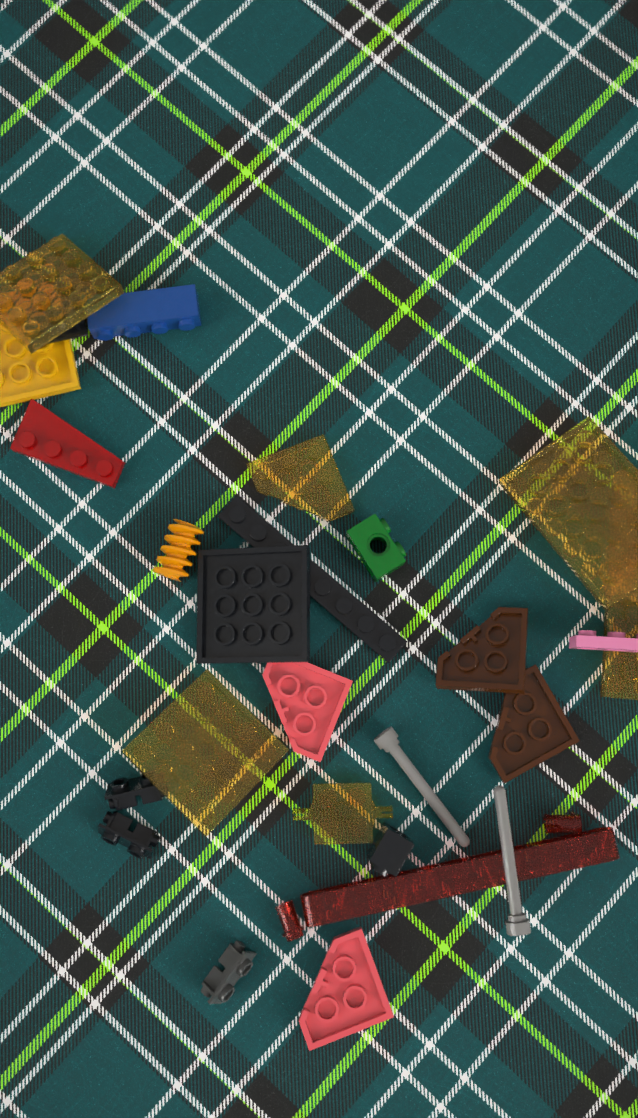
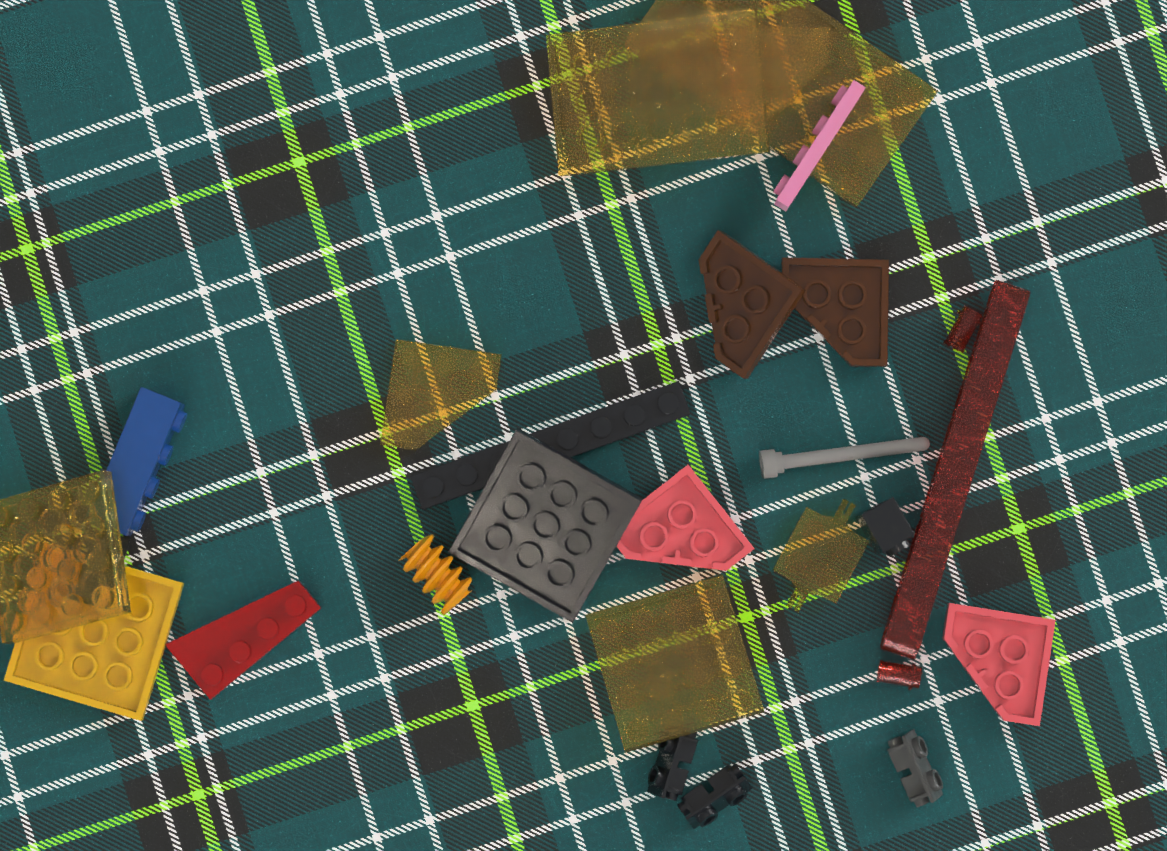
camera: 60 degrees left, 5 degrees up
(377, 564) = (538, 366): green brick -> none
(517, 922) = (1031, 436): light grey piece -> none

